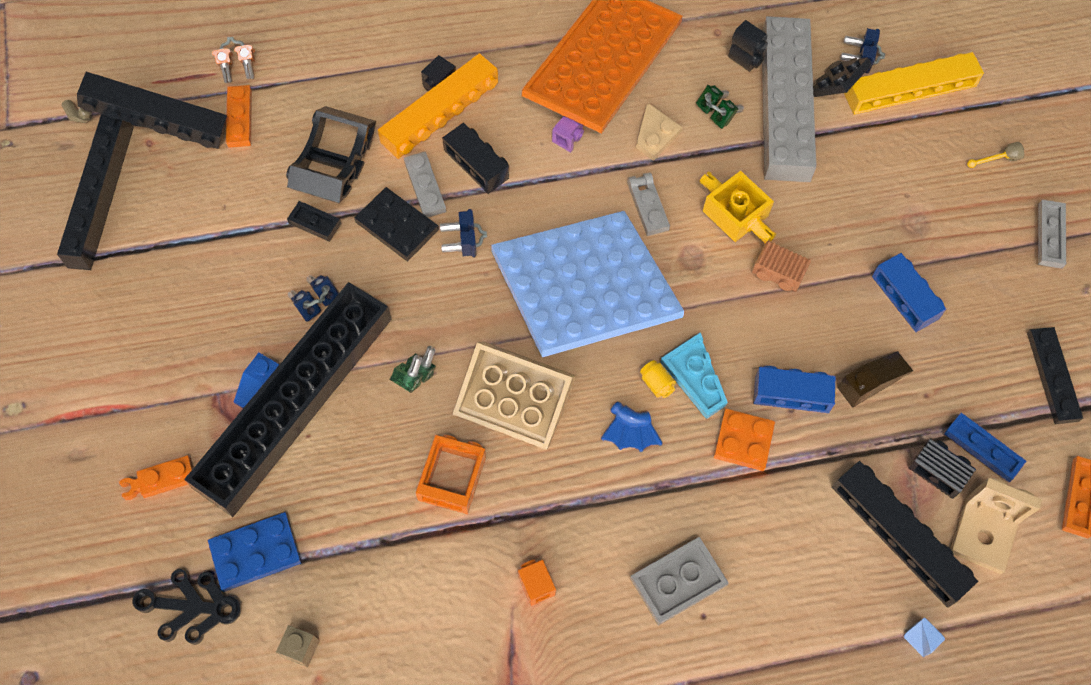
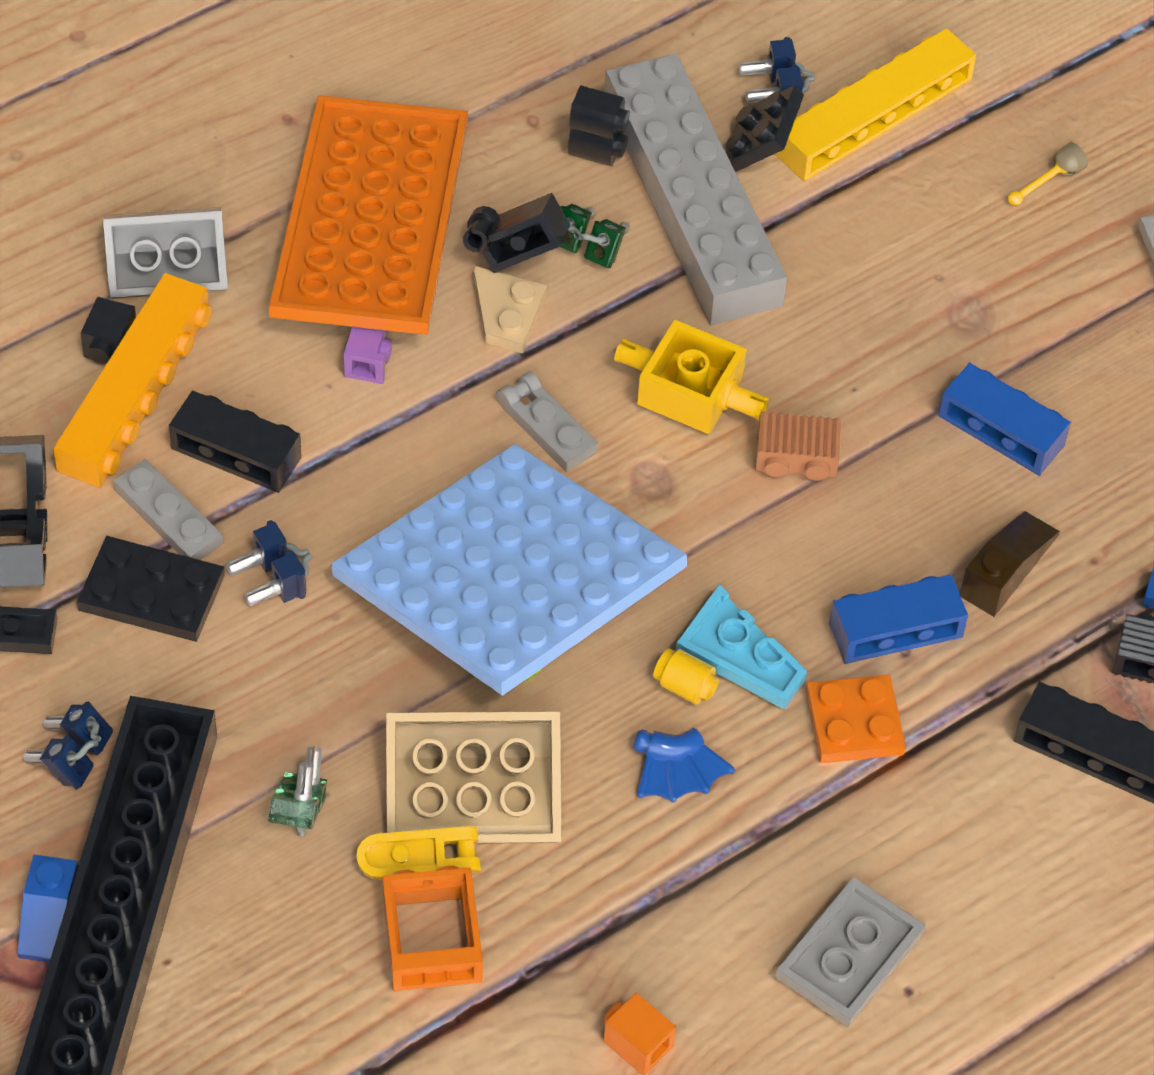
camera: 25 degrees left, 10 degrees down
(464, 427) = (417, 851): none -> yellow plate
(492, 38) = (161, 242): none -> light grey slope
(676, 92) = (517, 232): none -> black hinge

